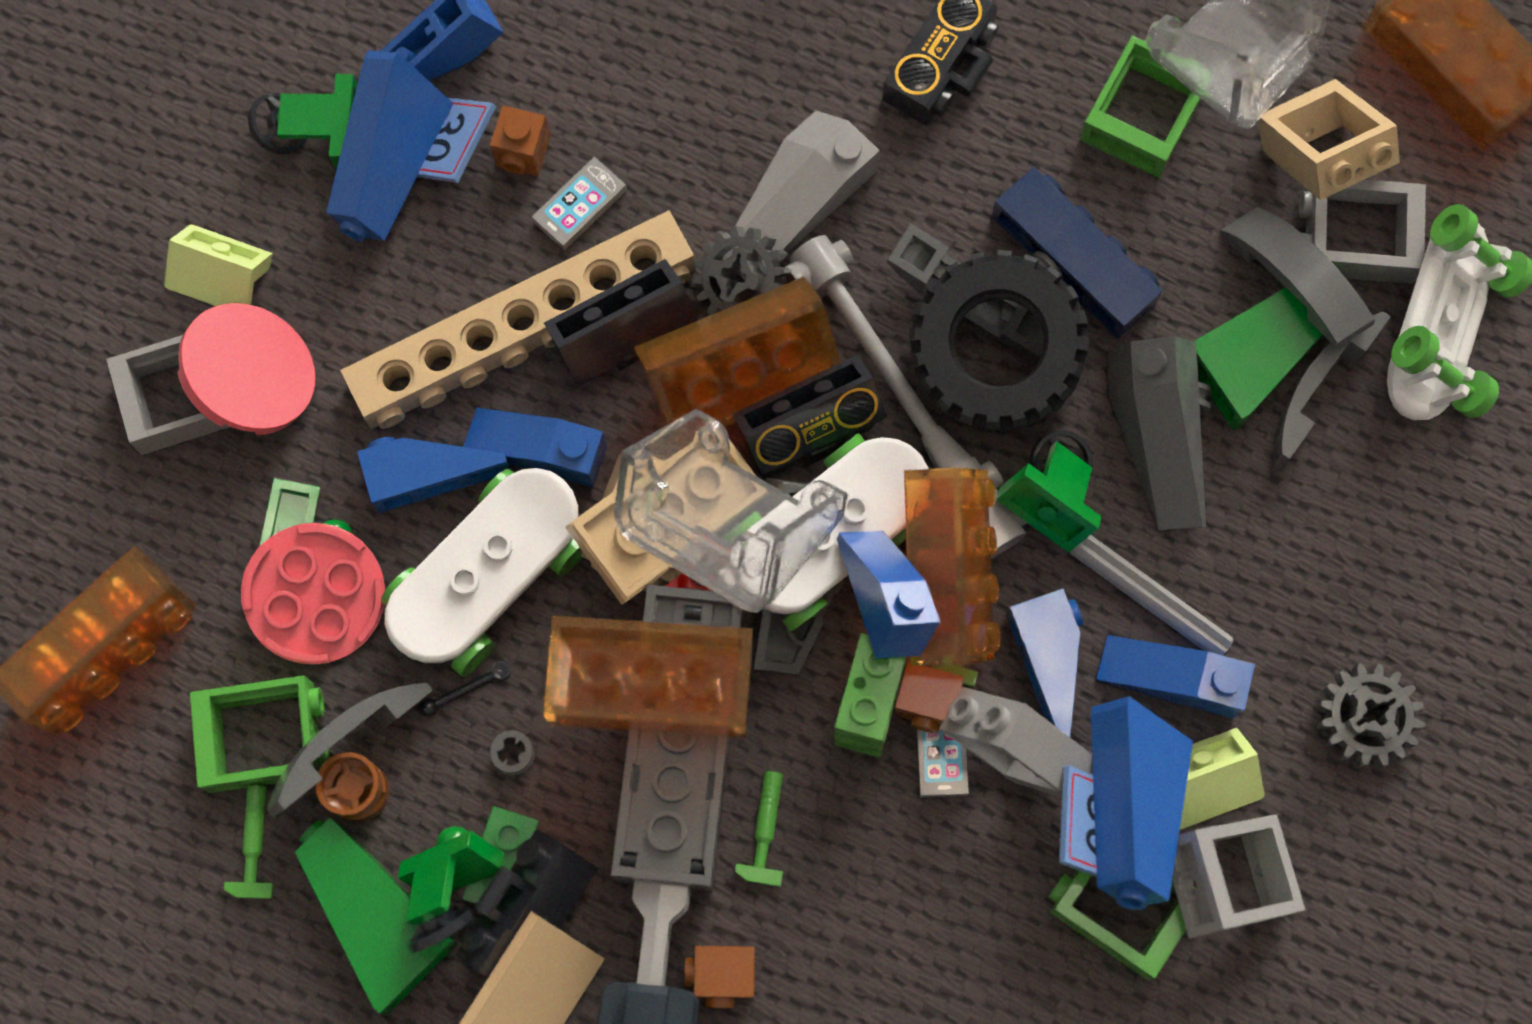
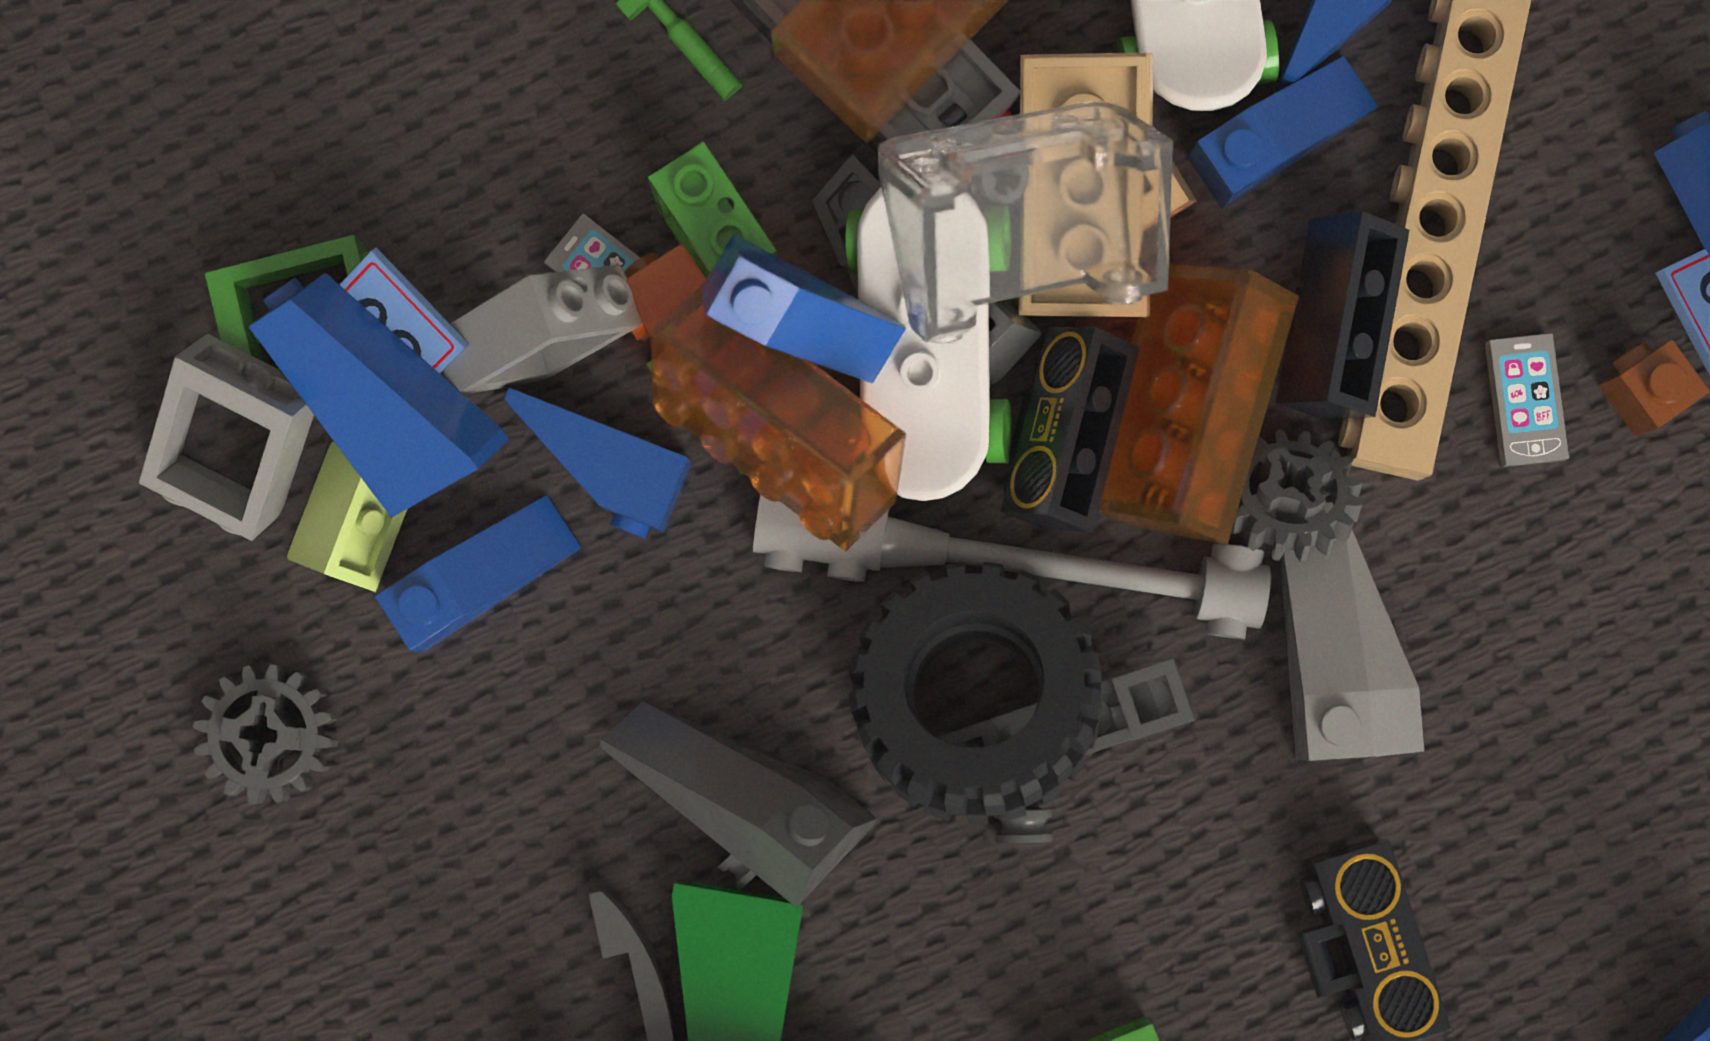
camera: 130 degrees right, 10 degrees up
(1056, 497) = (756, 608): green piece -> none
(1089, 261) = (1015, 885): dark blue brick -> none
(1152, 596) = (581, 628): light grey axle -> none

